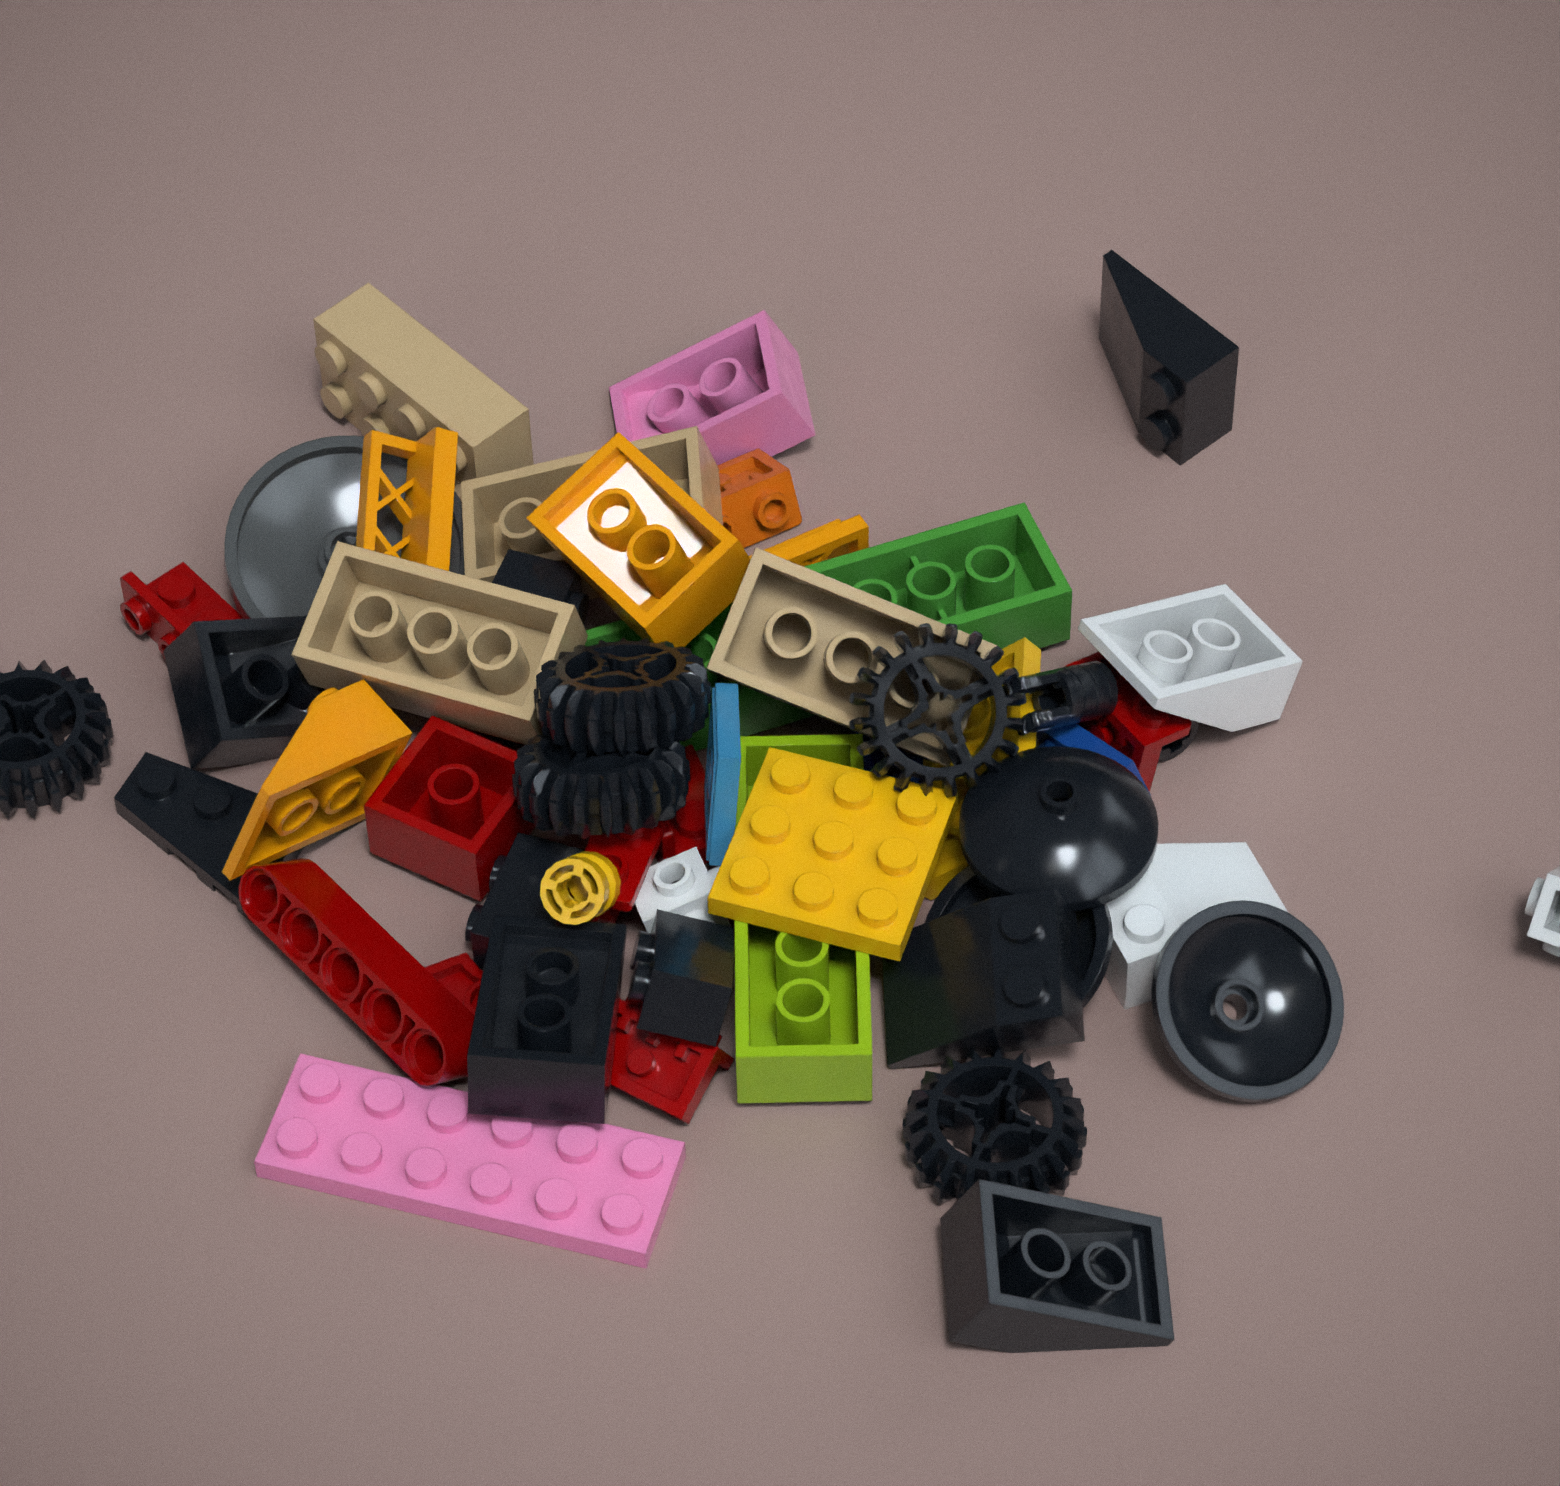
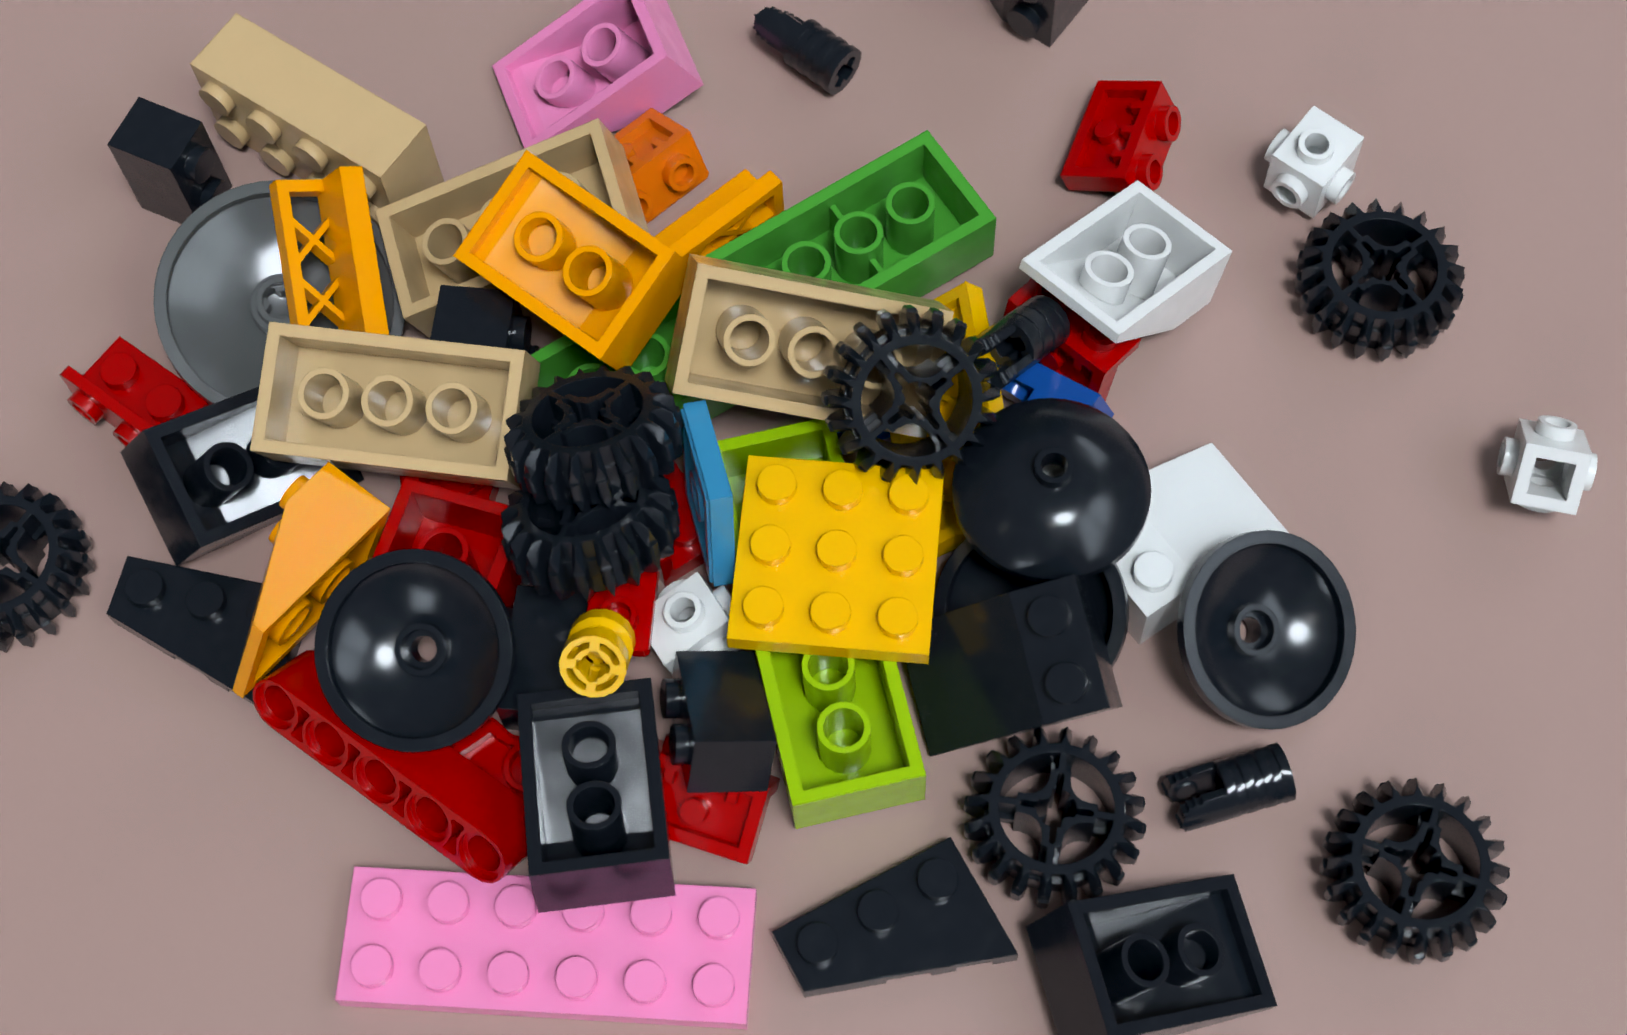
camera: 10 degrees left, 15 degrees up
(267, 405) = (167, 160): none -> black brick
(379, 829) = (372, 658): none -> black dish
(826, 1198) = (896, 926): none -> black wing
(931, 422) = (809, 48): none -> black hinge
(1177, 1140) = (1231, 787): none -> black hinge
(1233, 546) = (1122, 137): none -> red bracket
(1359, 1270) = (1442, 878): none -> black gear
(1414, 605) = (1312, 162): none -> white brick
(1447, 740) = (1378, 310): none -> black gear

